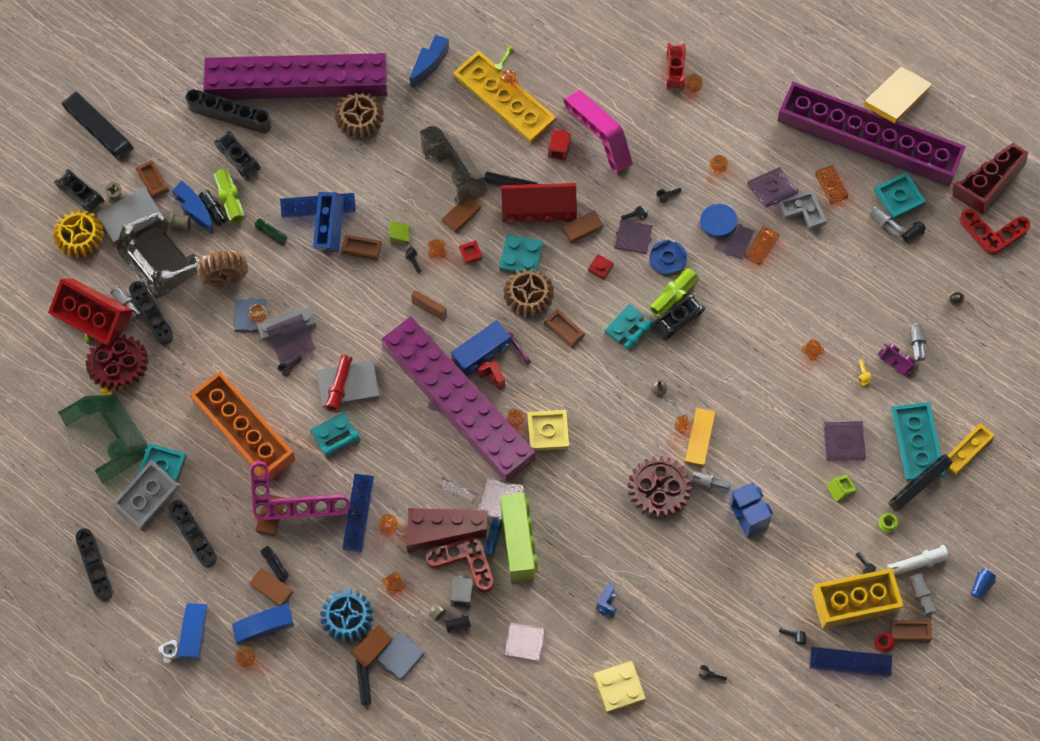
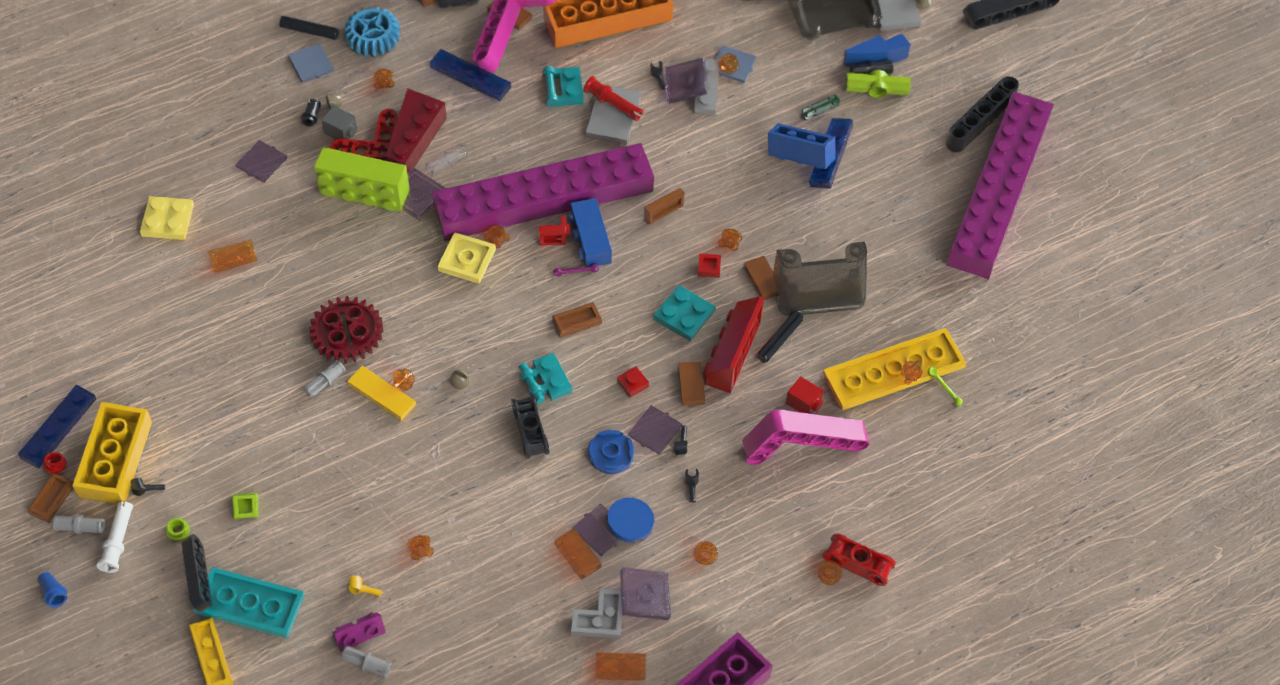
camera: 110 degrees right, 10 degrees down
(152, 179) = (929, 33): dark orange tile -> none
(179, 222) = (868, 31): dark tan bush -> none
(222, 268) = (789, 43): medium nougat gear -> none
(245, 162) = (924, 104): black piece -> none
(361, 247) = (765, 177): dark orange tile -> none
(369, 109) = (914, 224): medium nougat gear -> none
(371, 646) = (330, 38): dark orange tile -> none
(388, 518) = (446, 94): clear orange plate -> none
(399, 232) = (766, 212): lime slope -> none
(410, 254) = (734, 213): black hand -> none
(429, 60) = (973, 312): blue slope -> none
(514, 289) = (636, 305): medium nougat gear -> none
(607, 598) = (257, 234): blue bracket -> none
(629, 605) = (232, 255): none -> clear orange plate
(674, 293) = (561, 435): lime piece -> none
(711, 674) = (131, 296): black hand -> none
(748, 503) = (274, 400): blue piece -> none
(800, 636) = (113, 391): black hand -> none
(844, 441) = (295, 530): clear purple tile -> none

